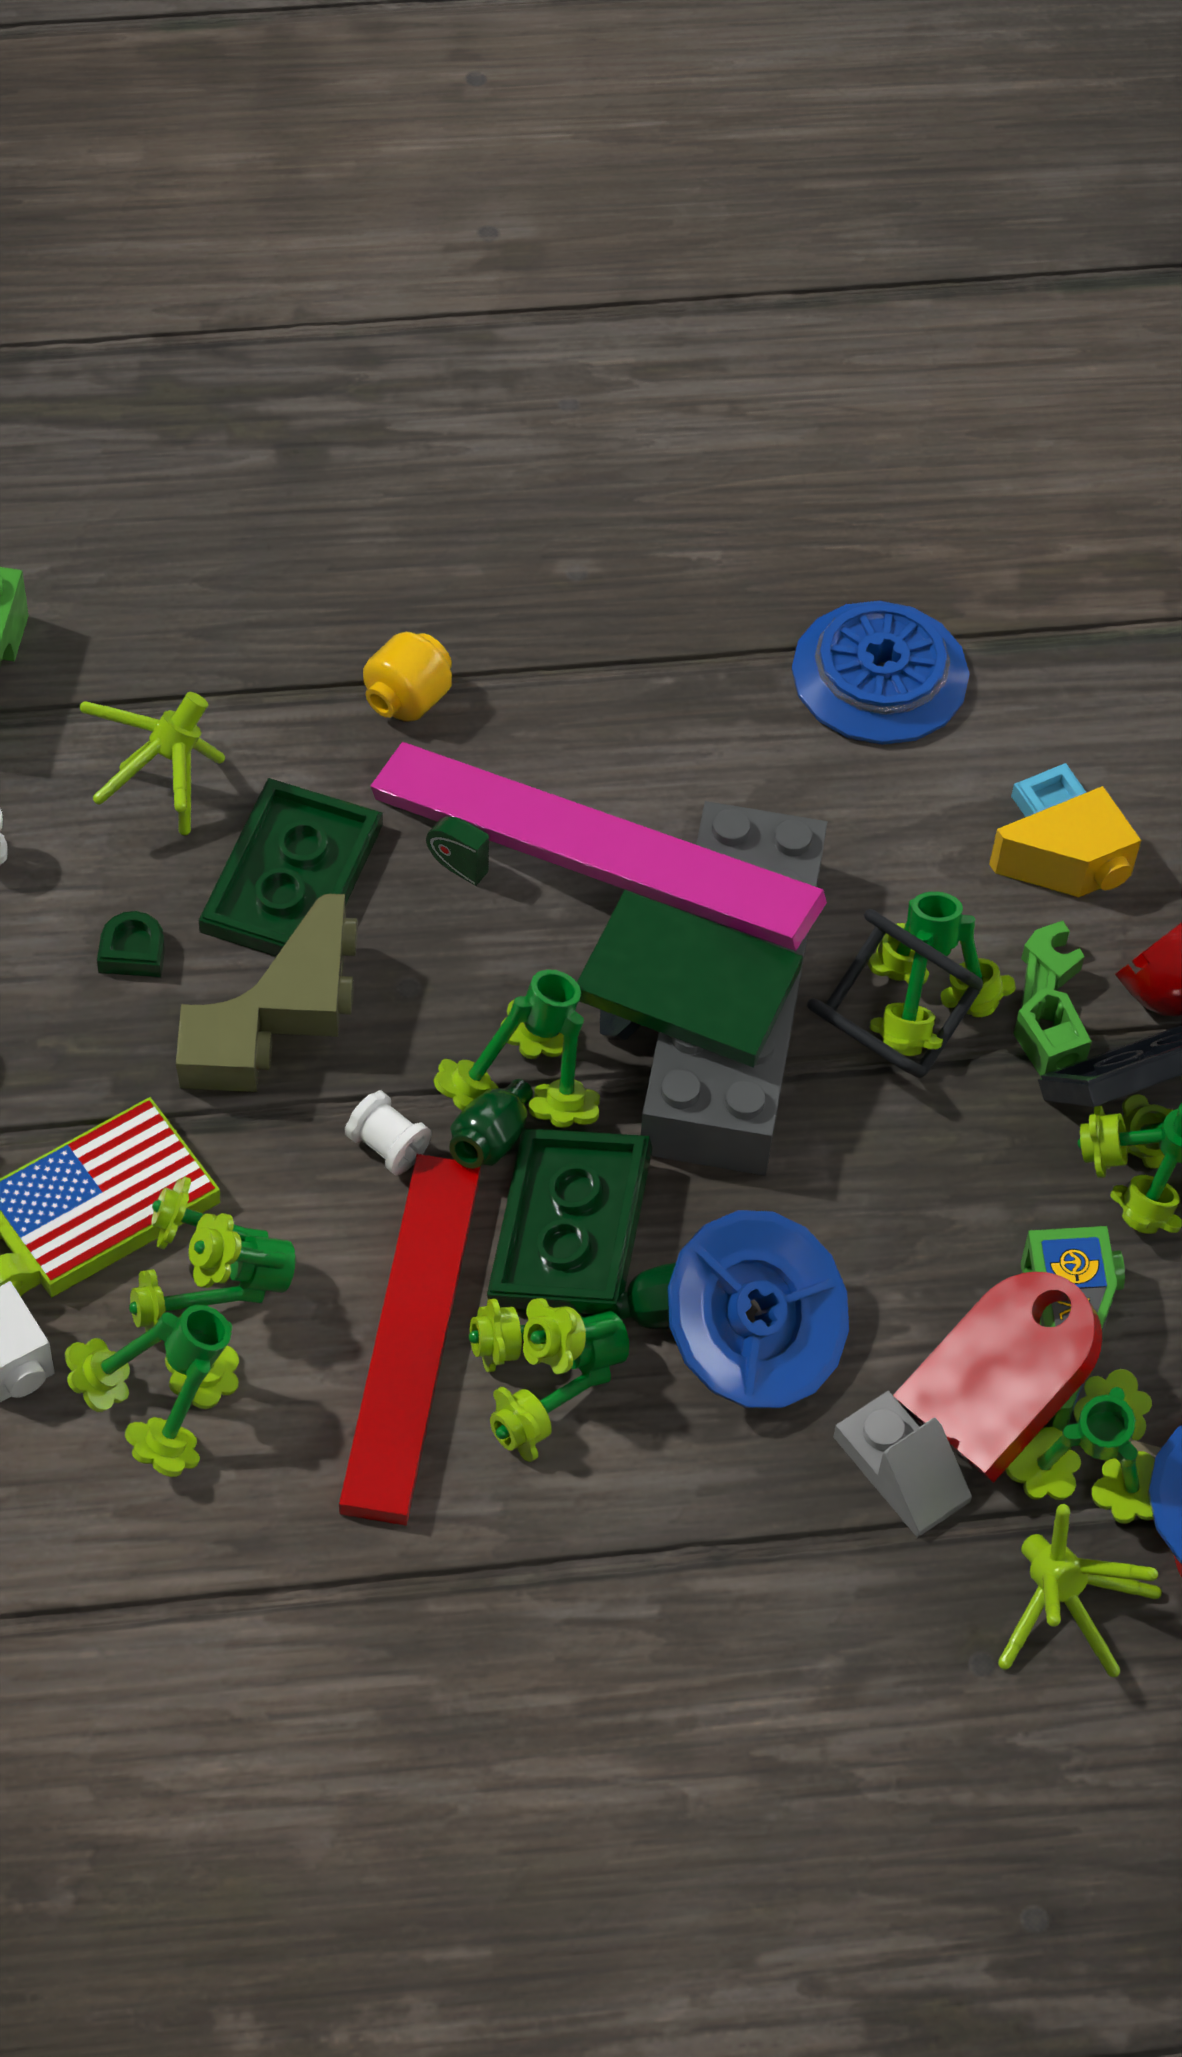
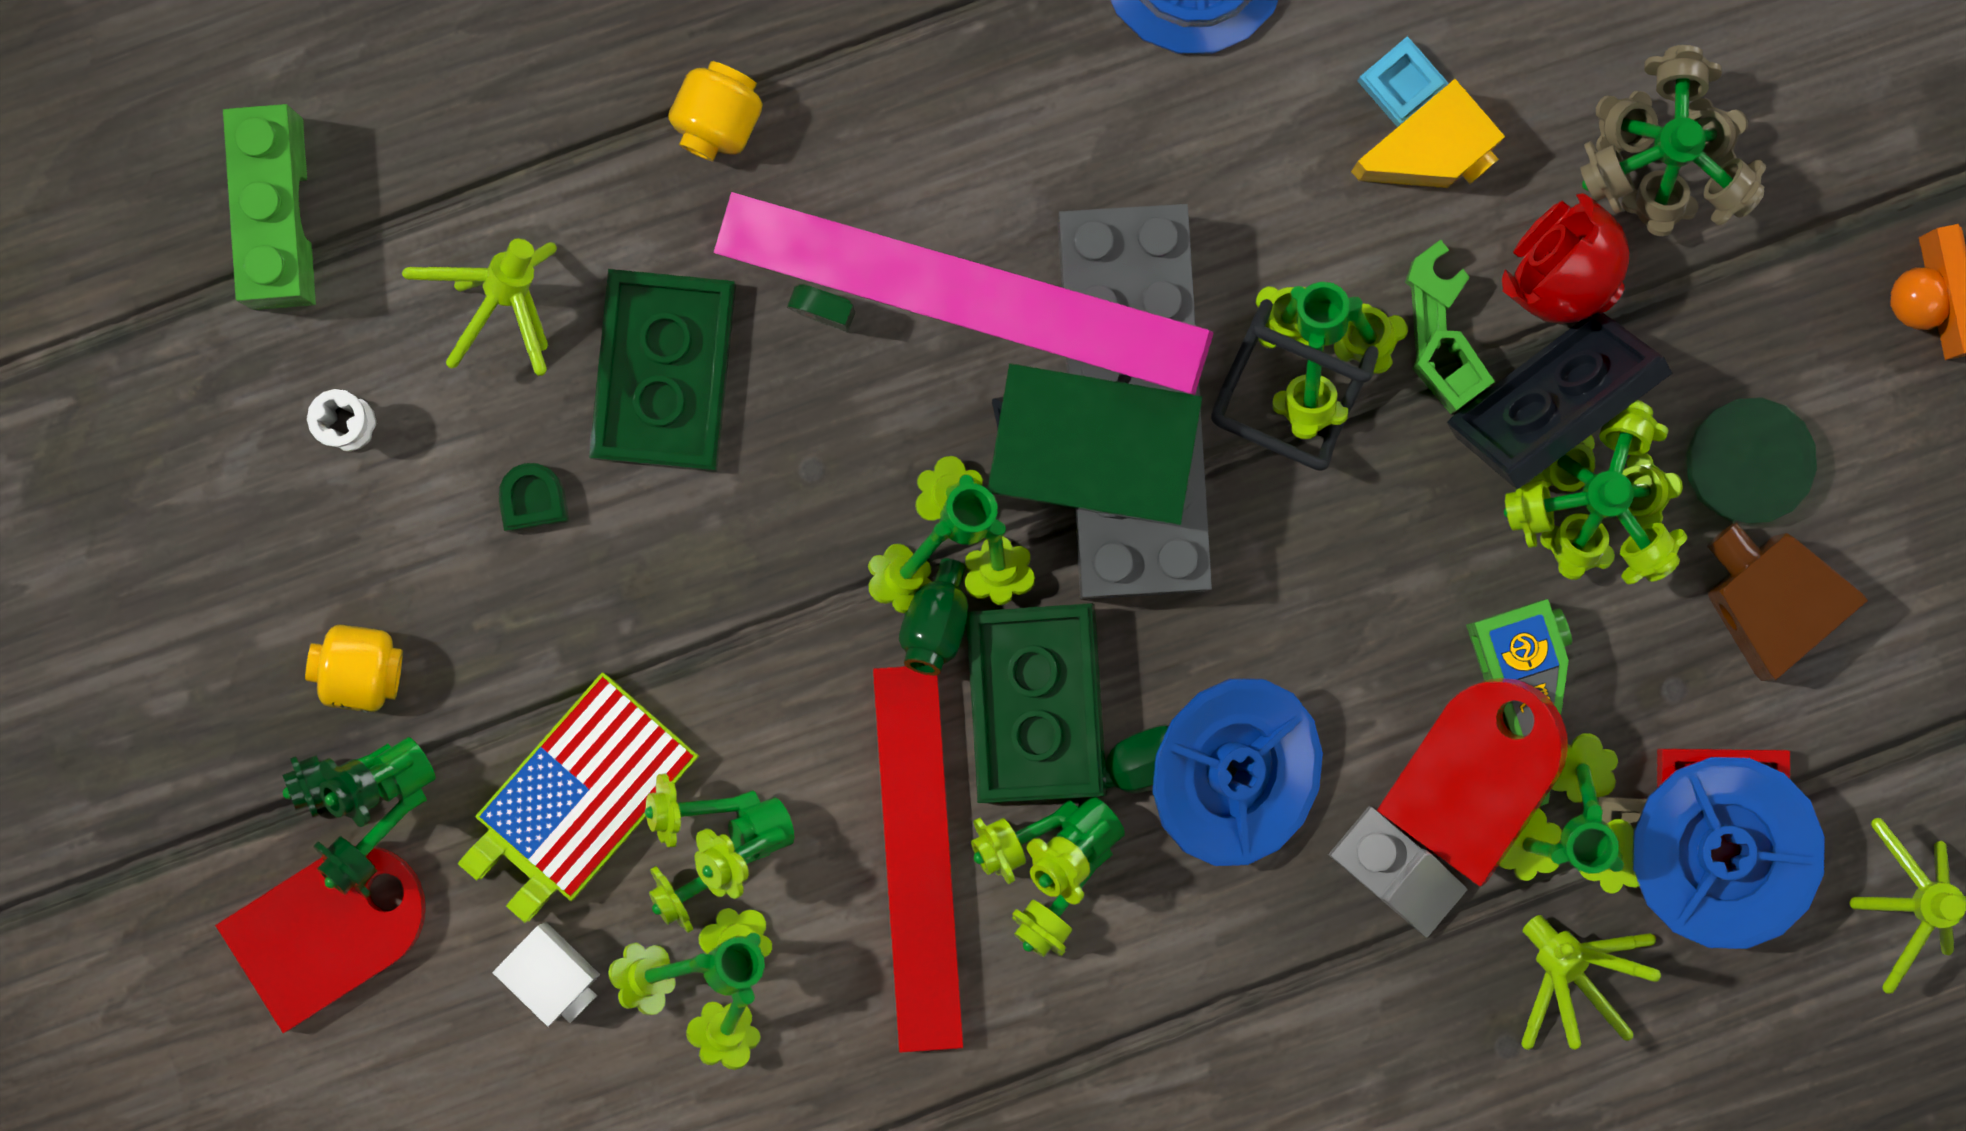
camera: 10 degrees left, 30 degrees up
(298, 995) = (715, 530): olive arch -> none
(387, 1132) = (839, 653): white bush -> none

